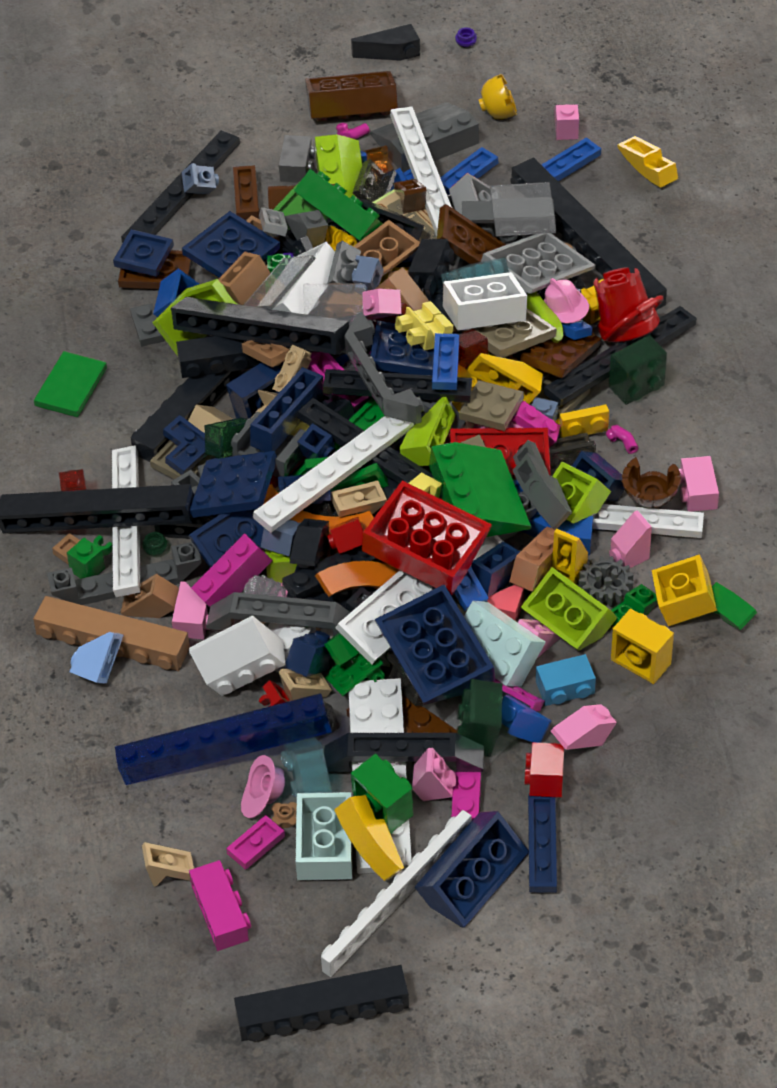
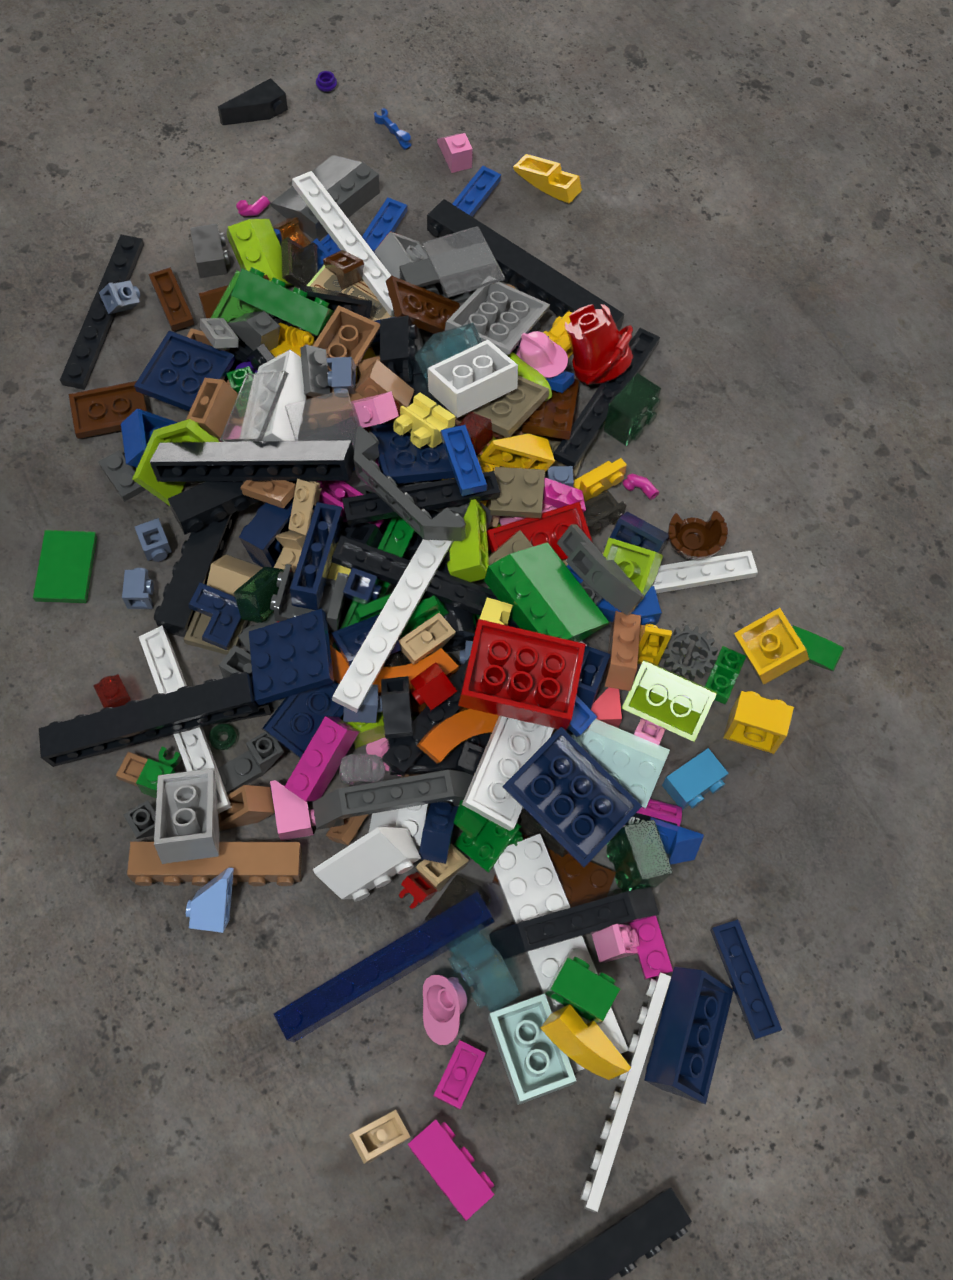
camera: 25 degrees left, 15 degrees up
(98, 584) = (186, 816): none -> light grey slope
(125, 414) = (137, 589): none -> sand blue brick
(143, 252) = (92, 396): dark blue plate -> none
(155, 384) = (153, 540): none -> sand blue brick
(287, 820) = (484, 1031): medium nougat plate -> none
(351, 95) = (238, 167): reddish brown slope -> none
(497, 98) = (383, 142): yellow cylinder -> none
(519, 97) = (402, 136): none -> blue piece
(545, 769) = (720, 895): brick -> none
(585, 727) = (739, 835): bright pink slope -> none
(632, 541) = (700, 603): bright pink slope -> none
(698, 484) = (739, 519): bright pink brick -> none

